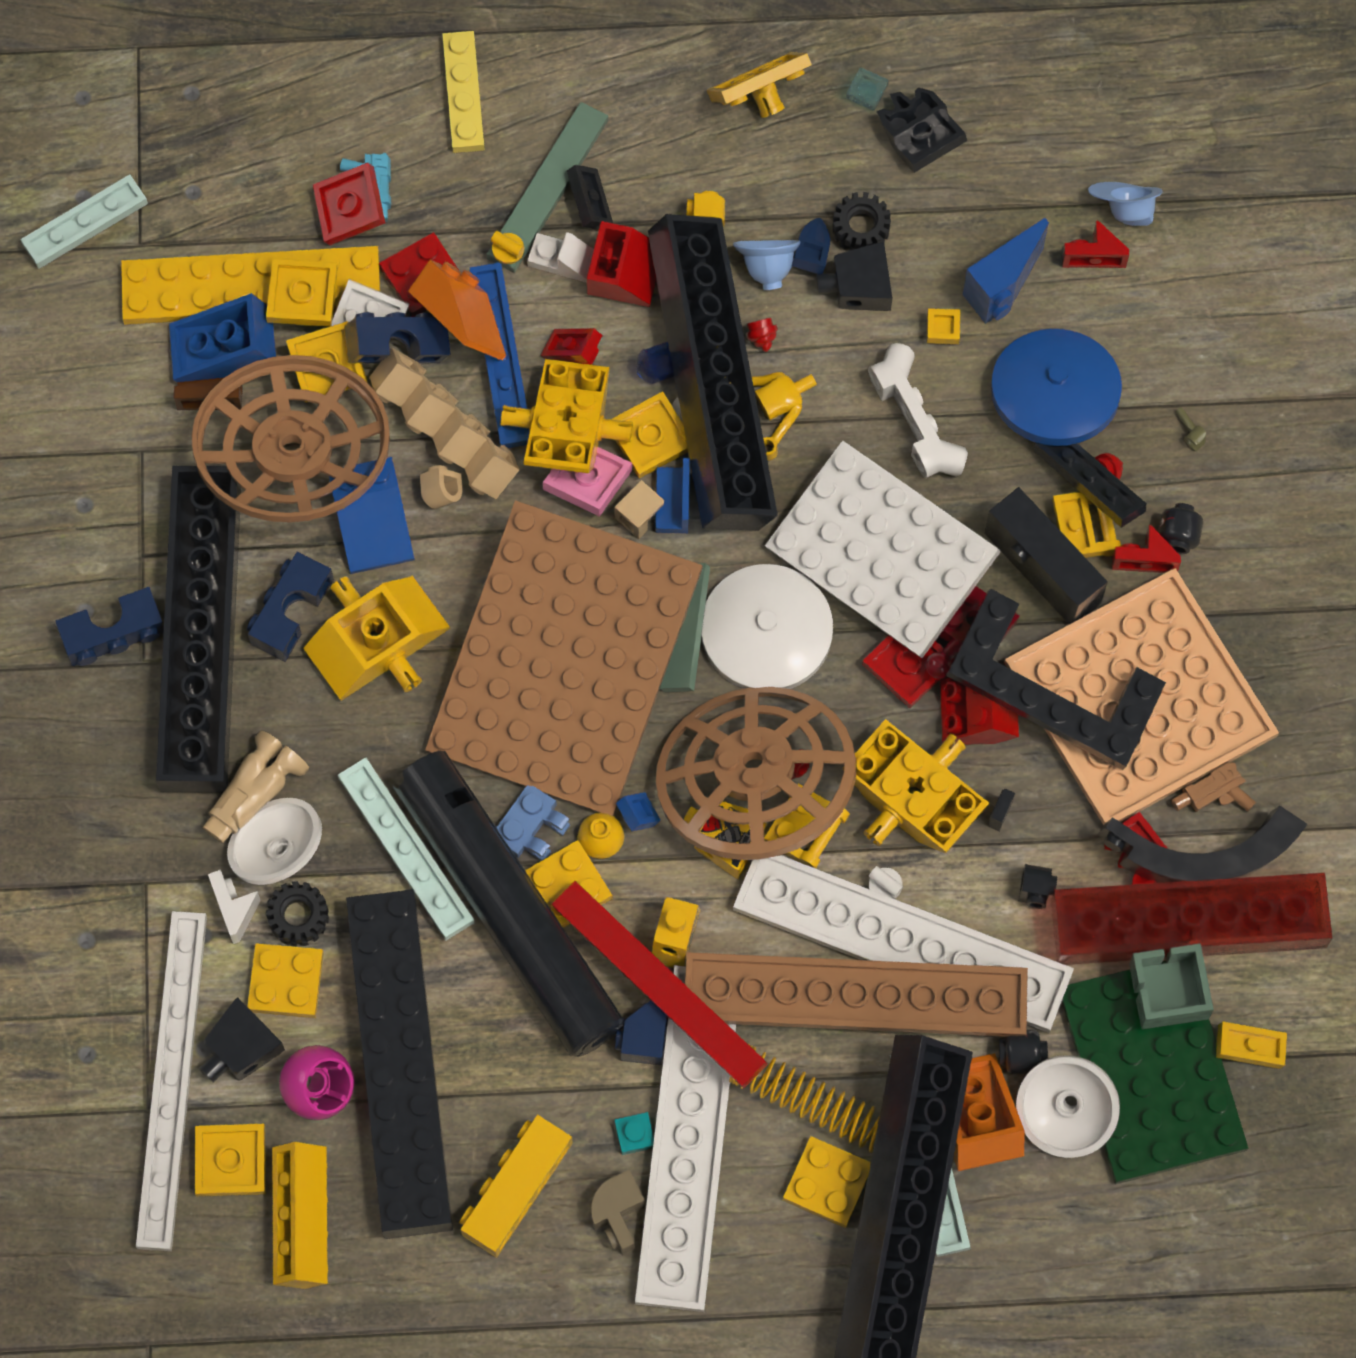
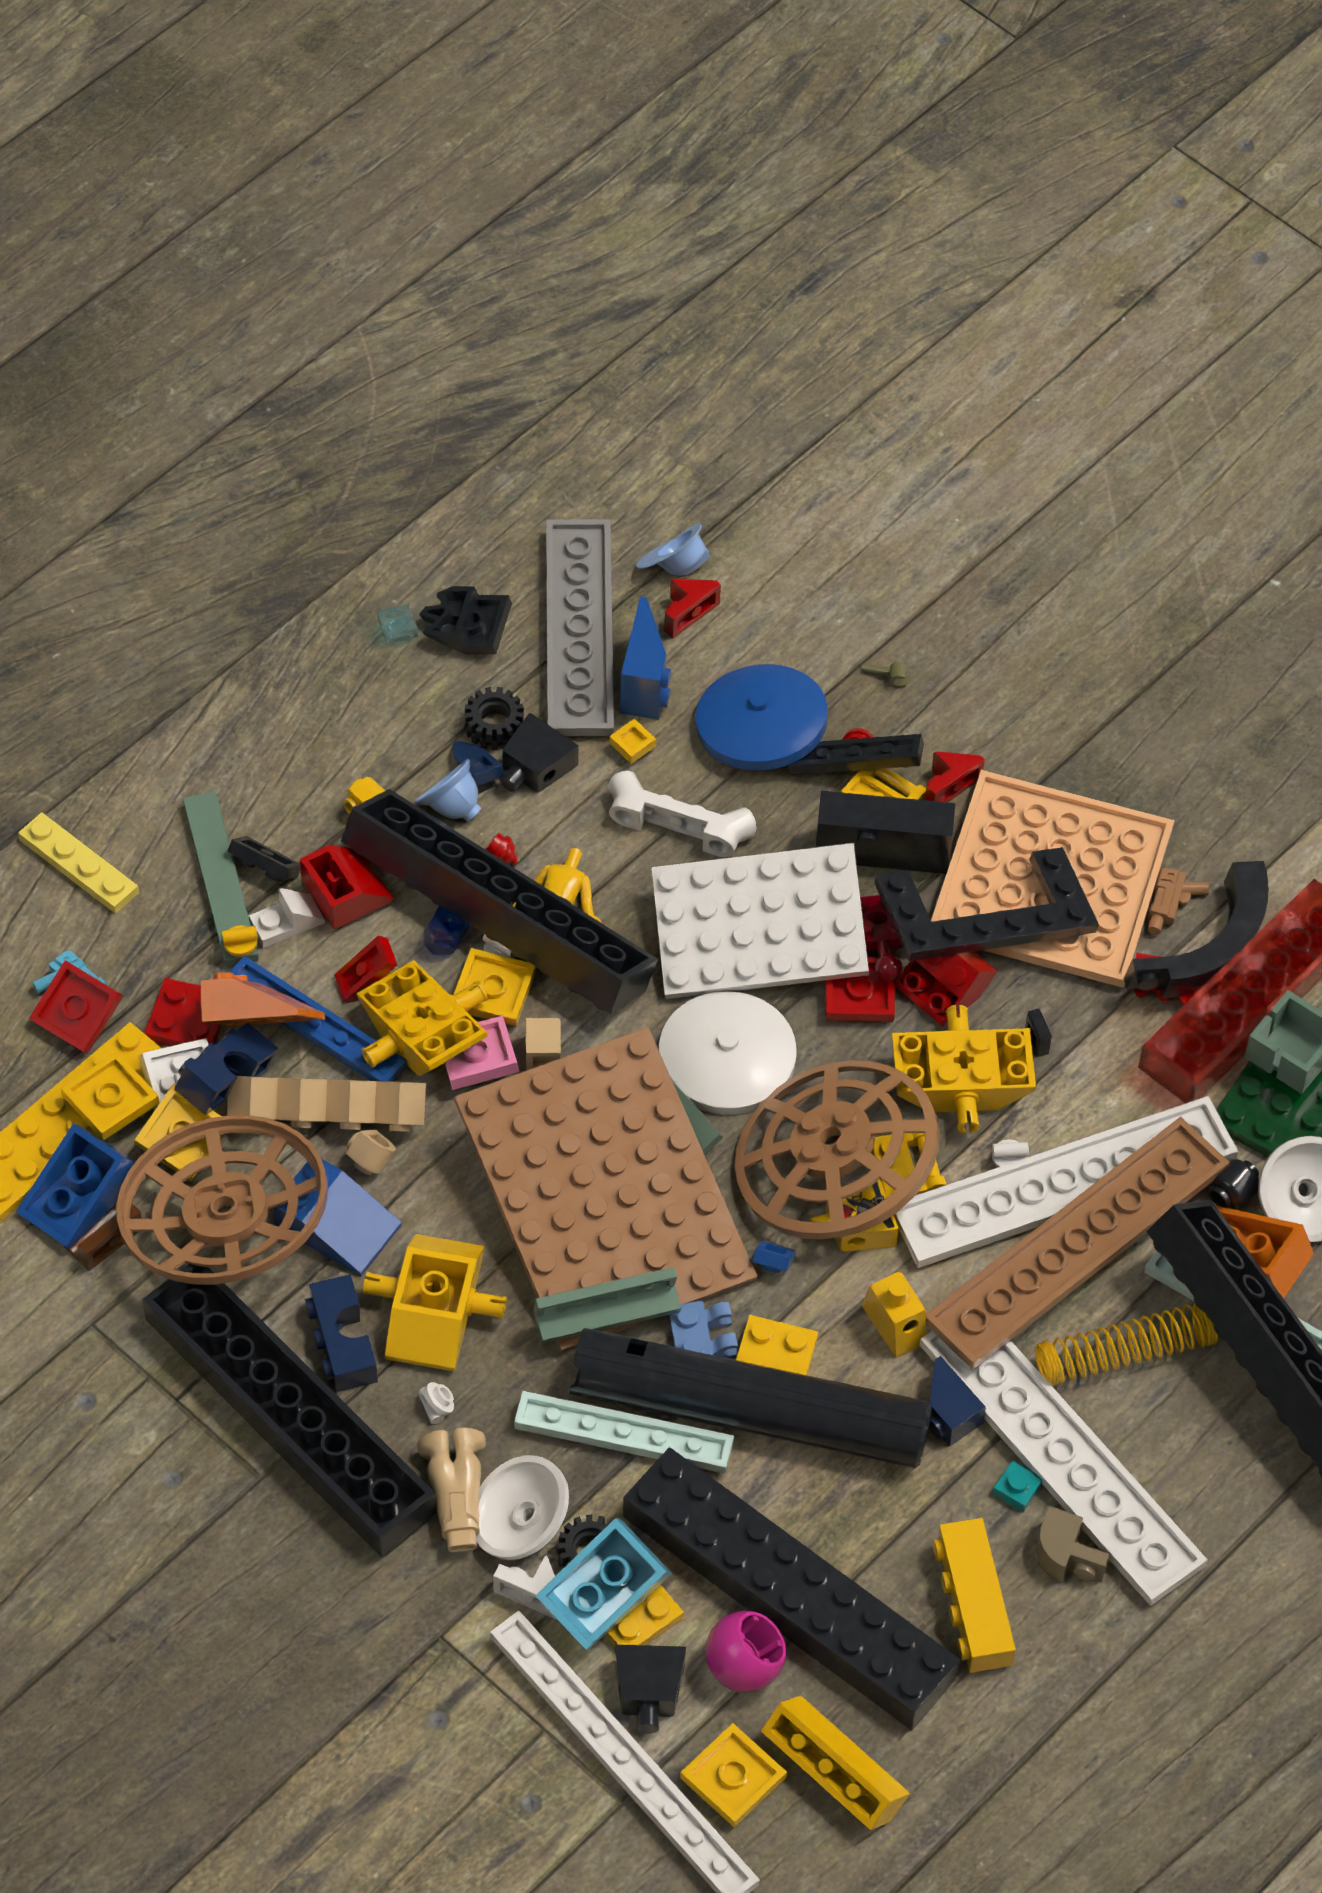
camera: 45 degrees left, 15 degrees down
(137, 623) = (201, 1494): dark blue arch -> none
(271, 948) = (603, 1583): none -> medium azure slope
(306, 712) = (436, 1401): none -> white plate
(476, 748) = (607, 1305): none -> sand green fence
(601, 835) = (761, 1297): yellow brick -> none
(659, 984) = (930, 1353): red tile -> none
(674, 489) = (558, 1002): blue panel -> none
(761, 83) = (315, 675): yellow plate -> none
(827, 1182) = (1194, 1396): yellow plate -> none
(997, 200) = (579, 627): none -> light grey plate
(1036, 886) = (1119, 1064): black plate -> none
(1181, 527) = (954, 737): black head -> none

